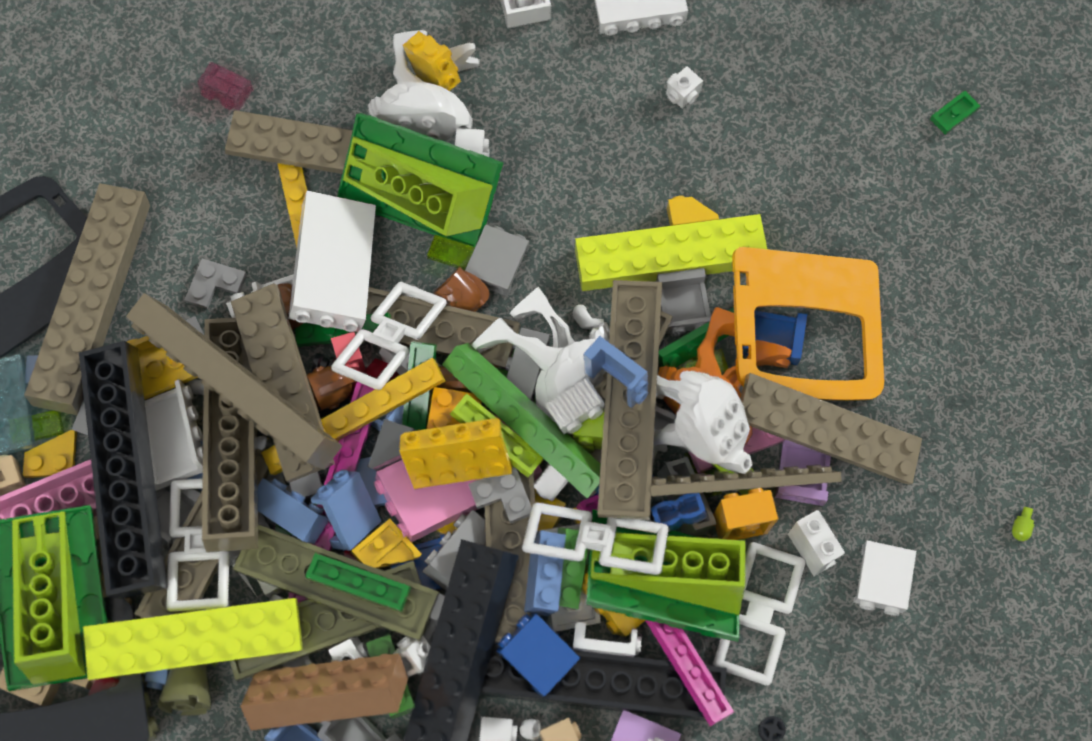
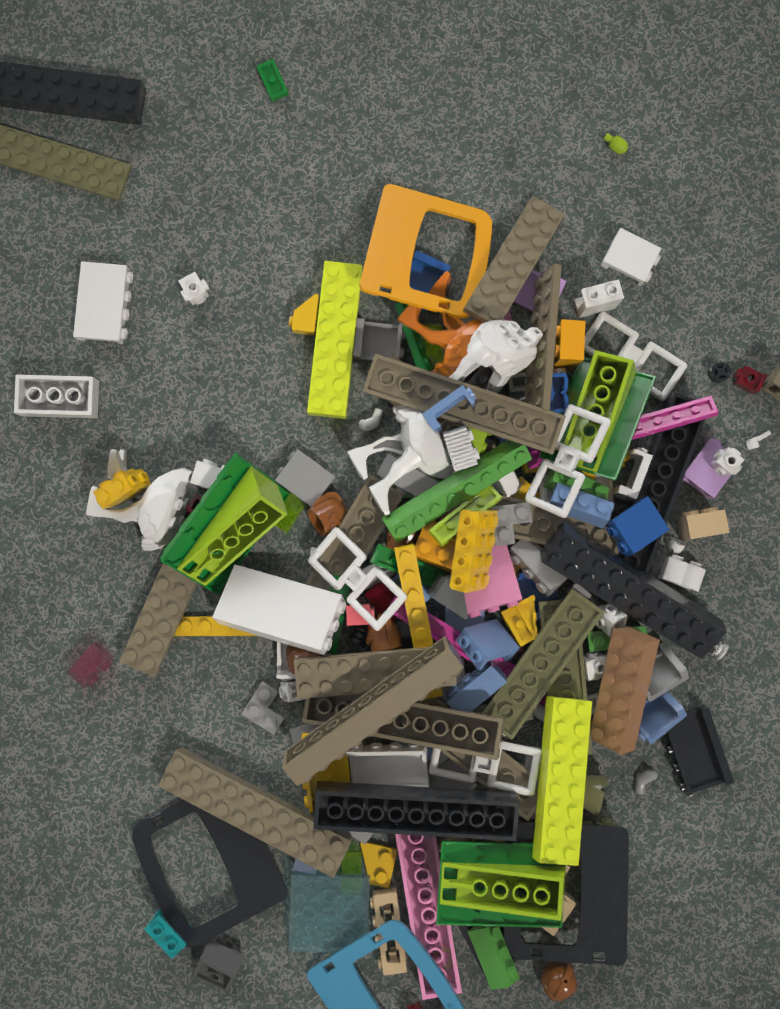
camera: 75 degrees left, 15 degrees up
(358, 582) = (551, 647): green plate -> none

